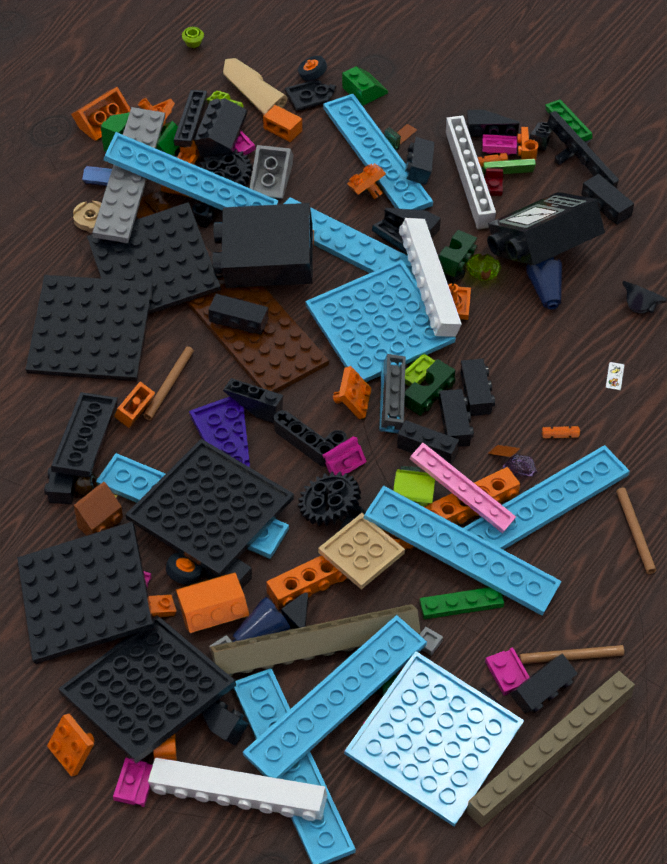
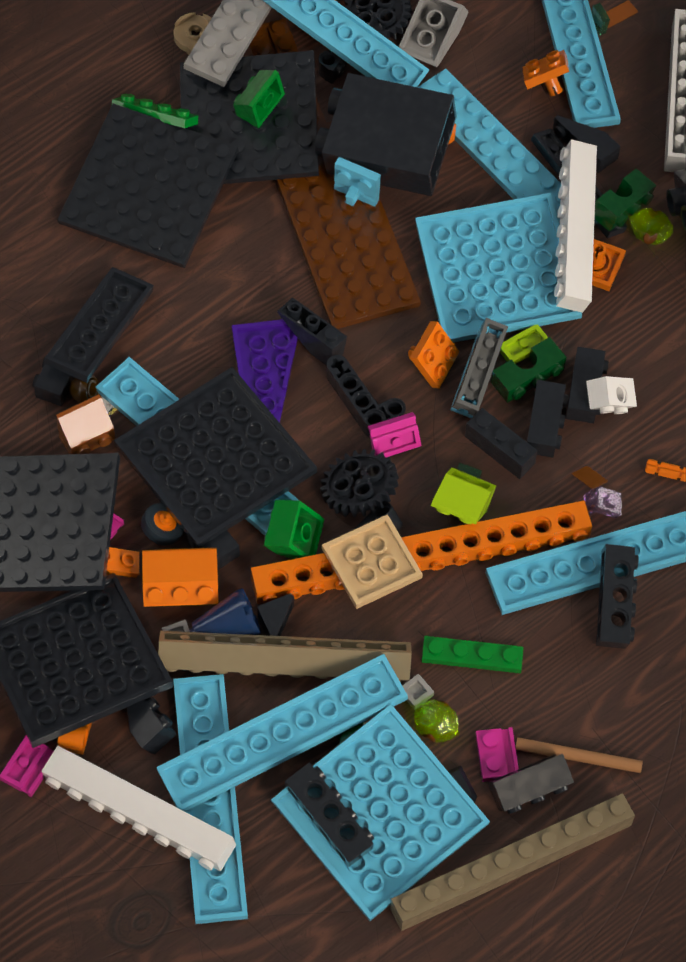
camera: 15 degrees right, 10 degrees up
(85, 271) = (164, 112): none -> green plate
(134, 404) = (169, 300): orange brick -> none
(159, 242) = (259, 97): none -> green slope
(168, 383) = (210, 290): medium nougat piece -> none
(238, 314) = (328, 215): black brick -> none
(253, 285) = (356, 182): none -> medium azure hinge
(289, 544) = (293, 529): none -> green slope
(419, 160) = (622, 59): black brick -> none
(419, 772) = (348, 849): none -> black brick
(452, 658) = (436, 721): none -> clear neon green hair
(462, 487) = (518, 515): bright pink plate -> none
(462, 550) = (492, 592): medium azure plate -> none
(499, 386) = (611, 394): none -> white brick
(560, 558) = (607, 633): none -> black brick

